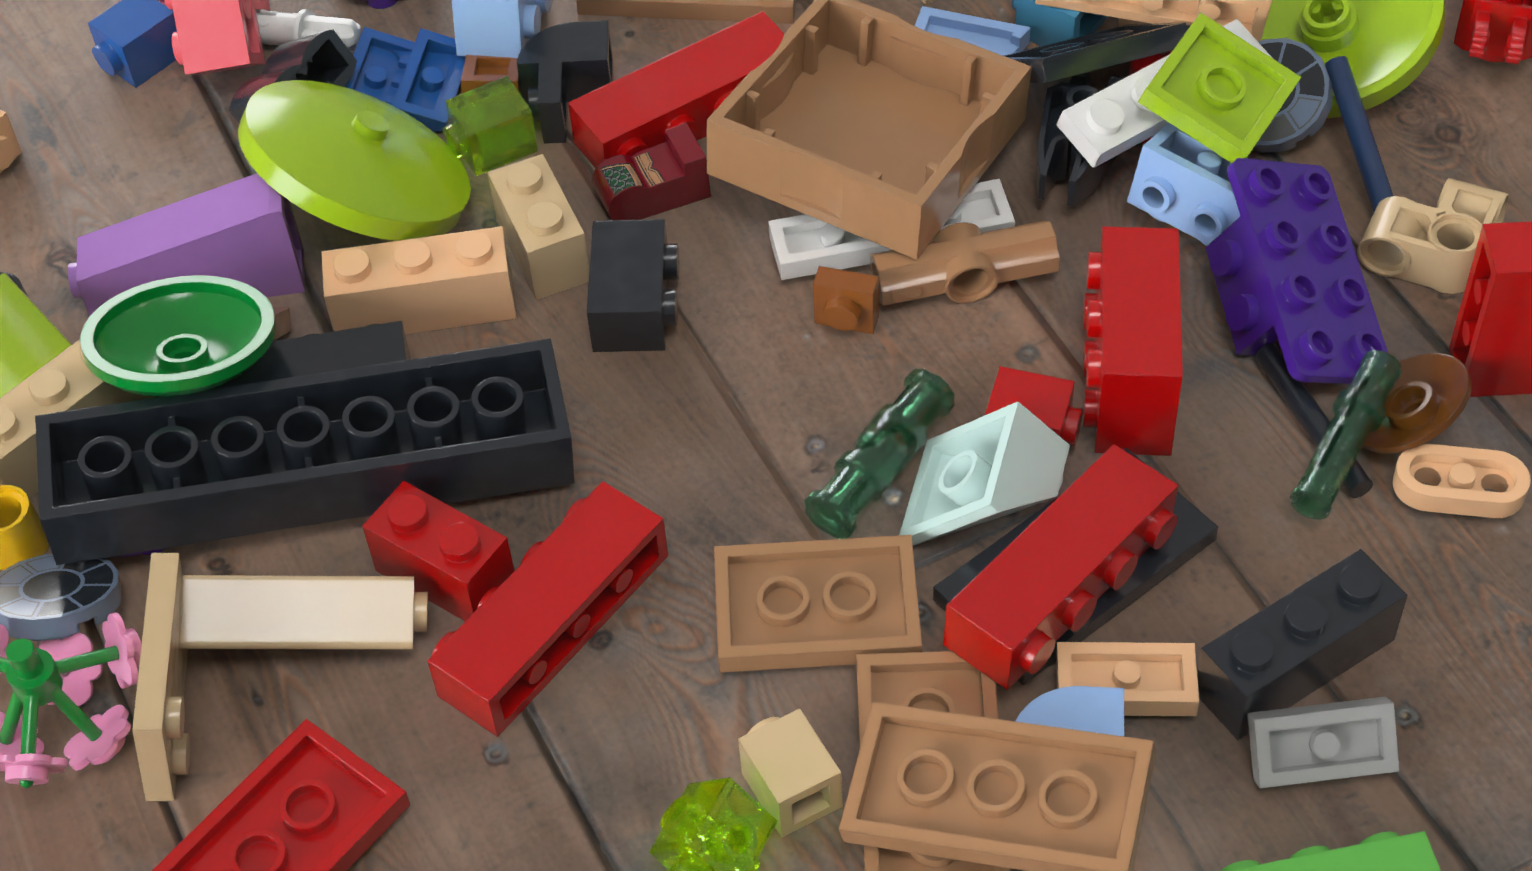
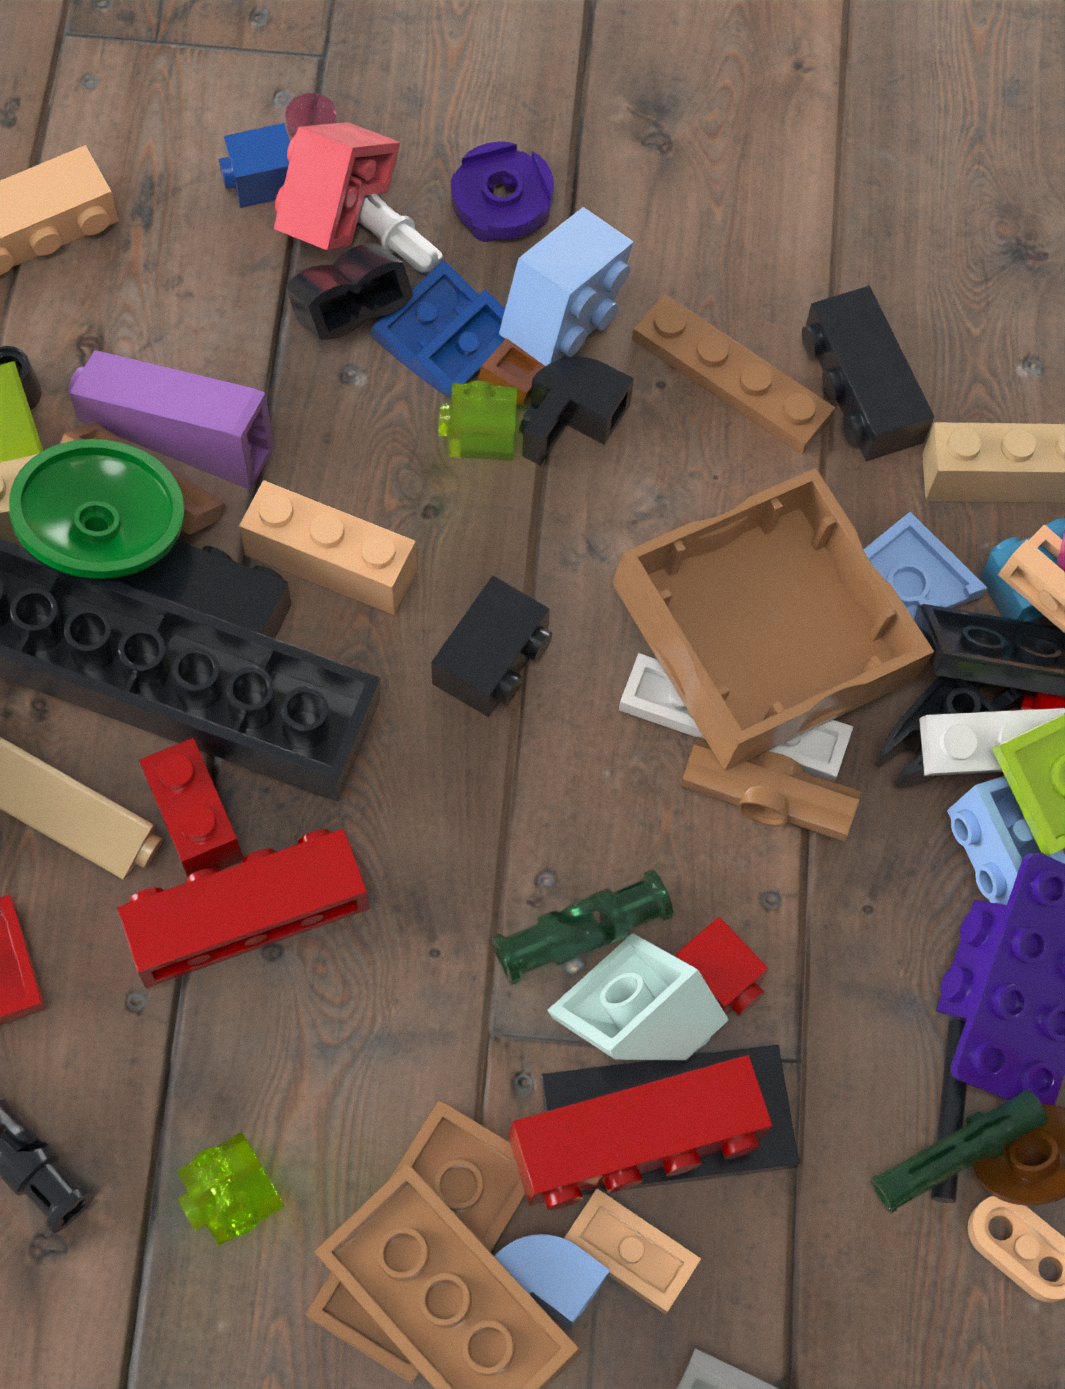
camera: 25 degrees right, 15 degrees up
(353, 160) = (340, 406): lime dish -> none
(539, 226) = (455, 546): tan brick -> none
(654, 177) = (574, 551): dark red leg -> none
(670, 91) = (649, 483): red brick -> none
(790, 771) = (324, 1165): tan brick -> none
(815, 602) = (444, 1031): medium nougat plate -> none
(846, 300) = (649, 768): dark orange plate -> none
(1136, 341) = (841, 957): red brick -> none
(1300, 642) = (783, 1312): black brick -> none

